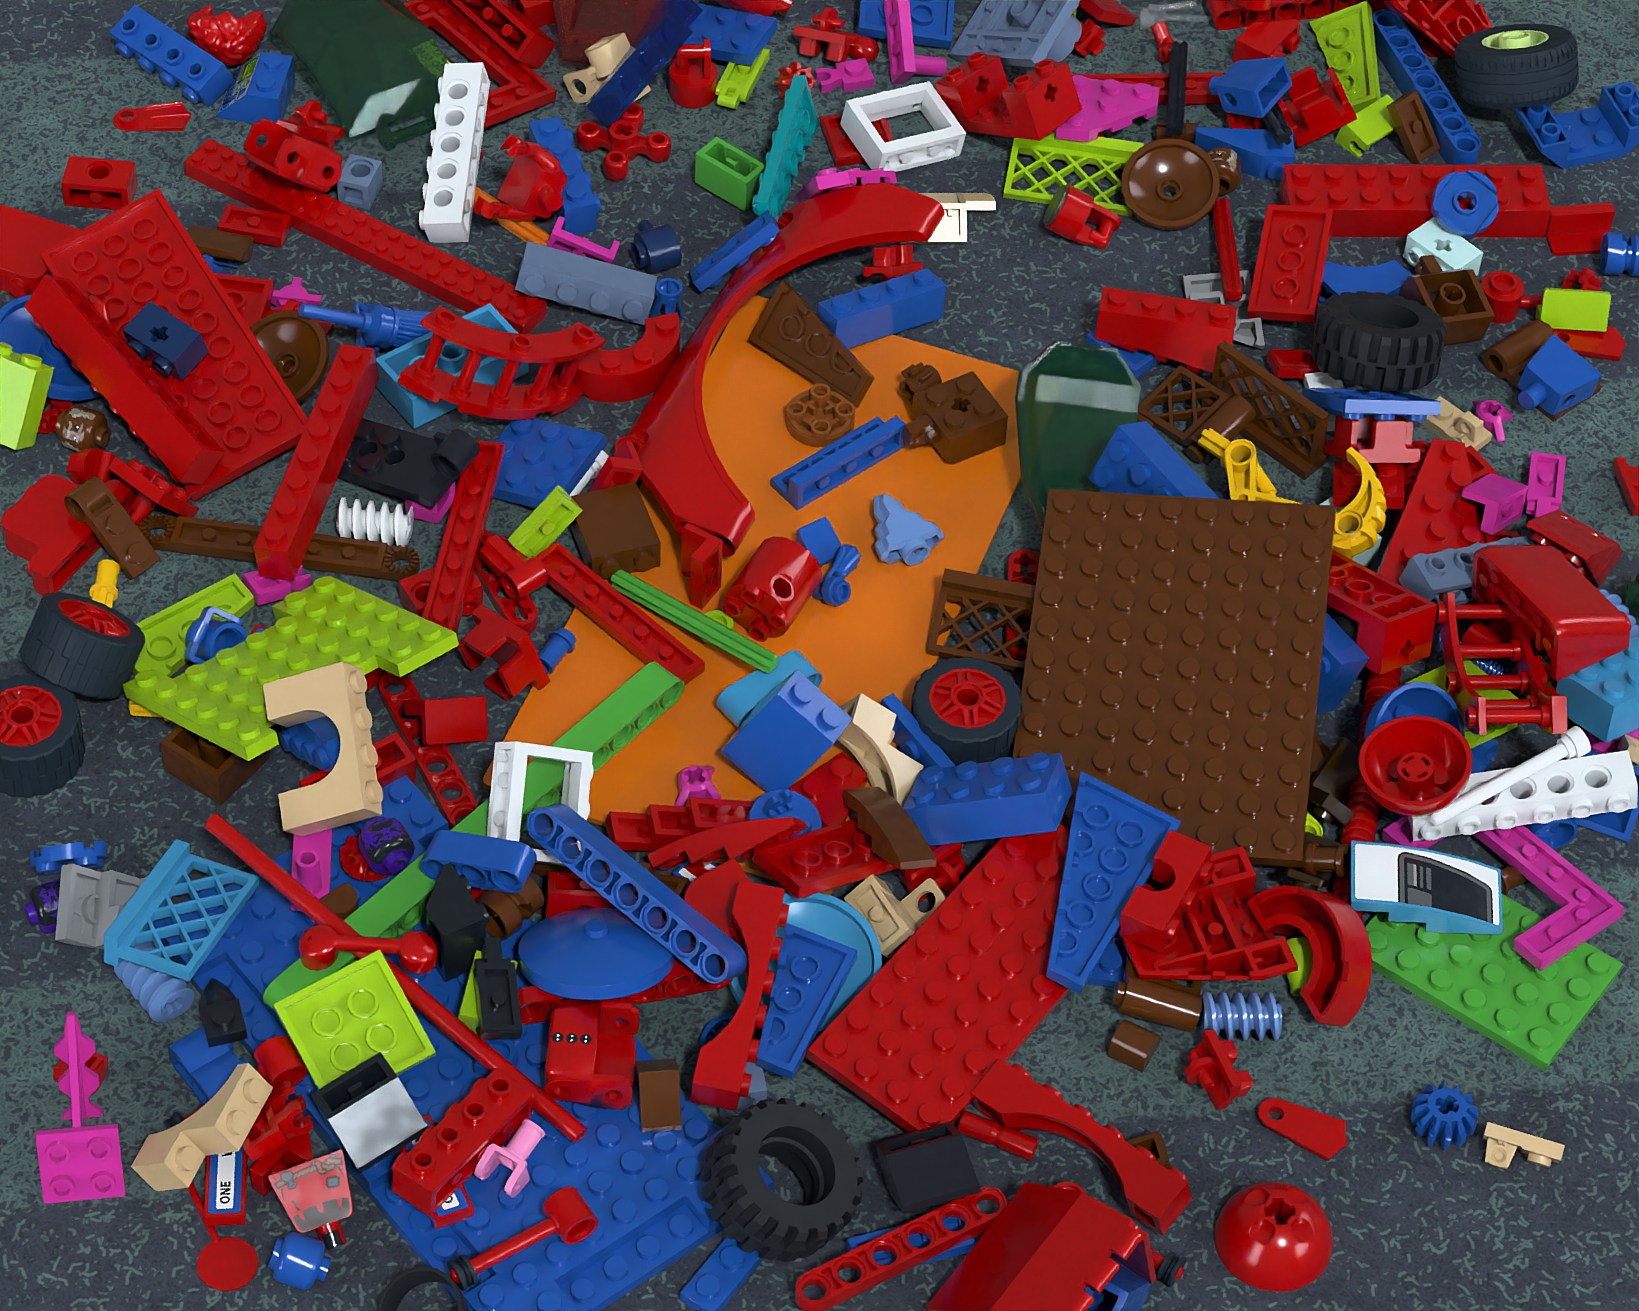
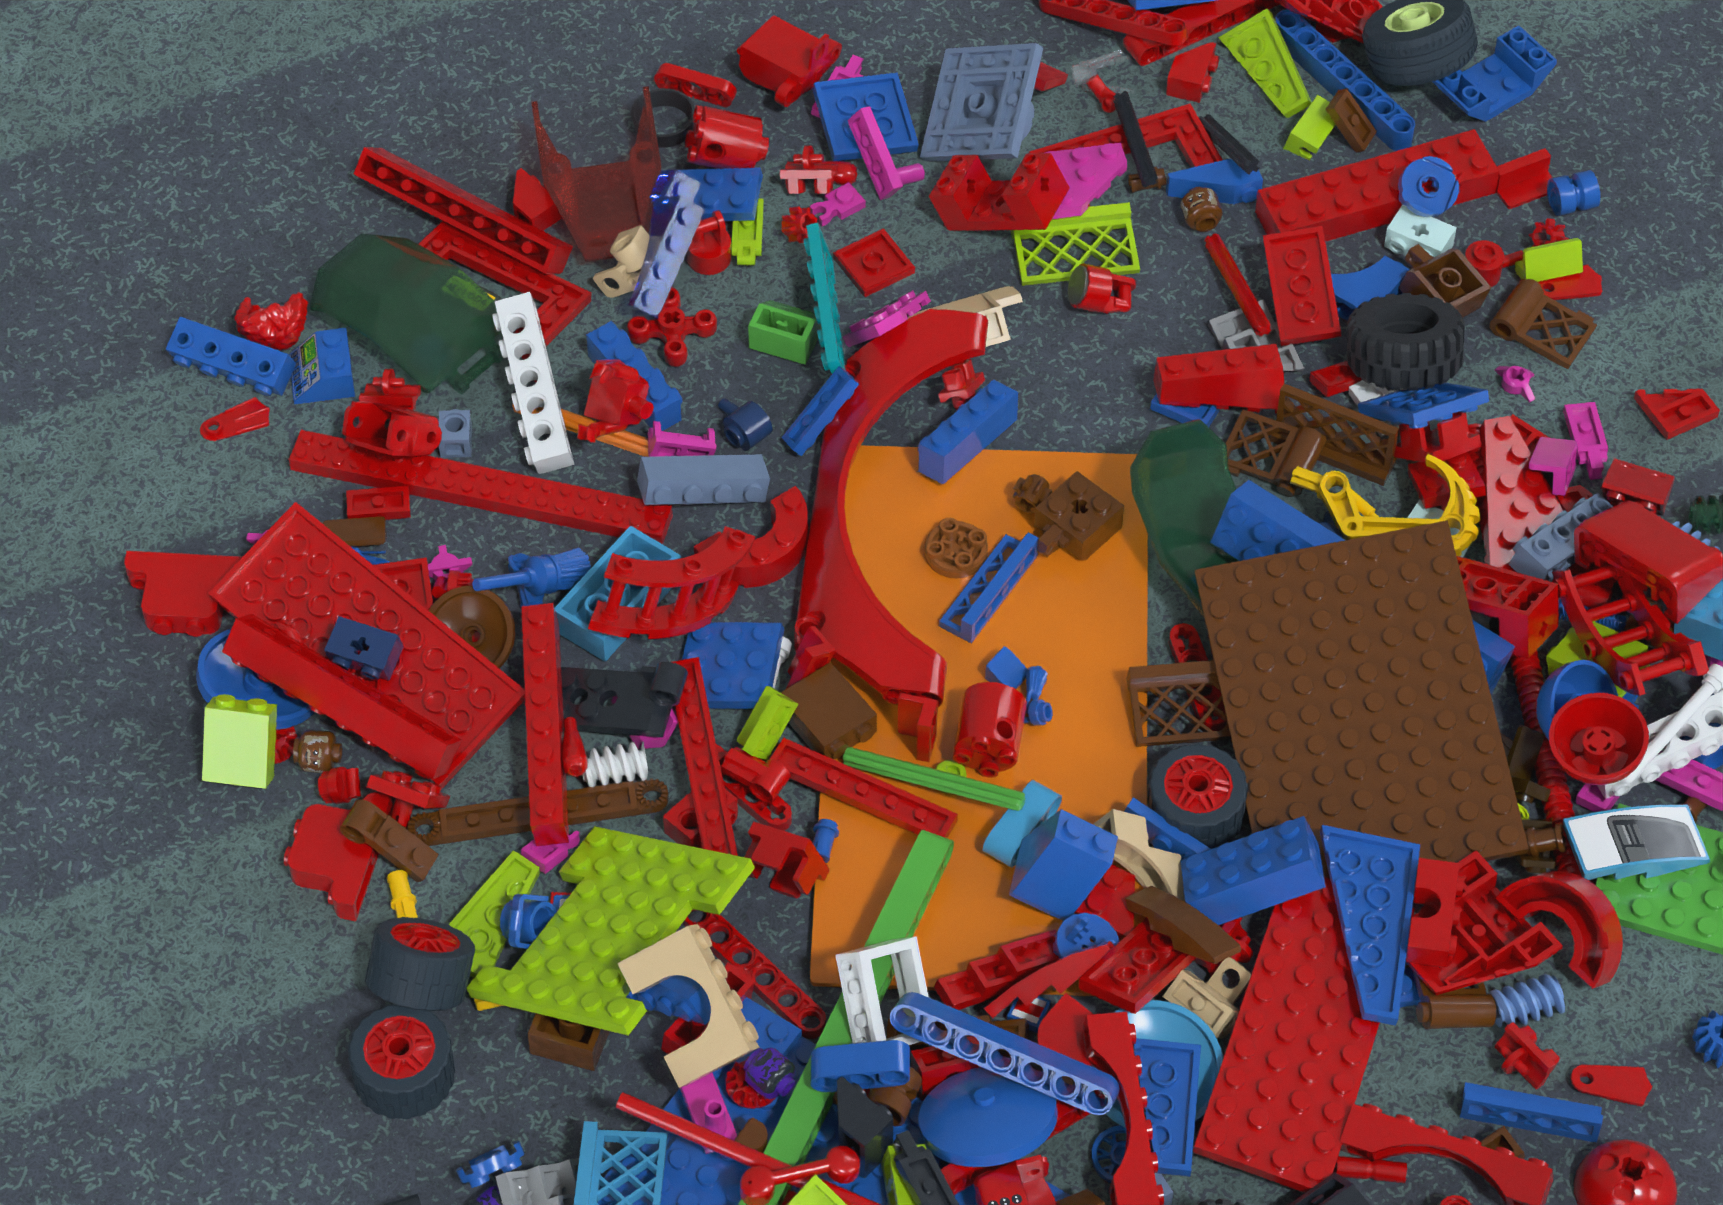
camera: 15 degrees left, 5 degrees up
(99, 183) = (221, 502): red brick -> none
(332, 493) = (573, 751): none -> red piece
(450, 719) = (760, 930): red panel -> none
(668, 293) = (778, 468): blue piece -> none
(701, 786) = (999, 930): dark pink piece -> none
(808, 345) = (919, 483): reddish brown wing -> none
(903, 533) = (1072, 639): medium blue rock -> none
(909, 151) = (930, 266): white window -> none
(1090, 39) = (1041, 108): red gear -> none
(1133, 1045) = (1449, 1054): reddish brown brick -> none
(1172, 167) = (1169, 218): reddish brown dish -> none
(1198, 1129) = (1531, 1112): none -> blue fence
(1252, 86) = (1202, 121): blue torso -> none
(1303, 955) = (1560, 931): lime cone -> none
(1315, 106) = (1261, 123): red panel -> none
(1458, 426) = (1502, 399): tan hinge -> none
(1556, 378) = (1561, 331): blue torso -> none

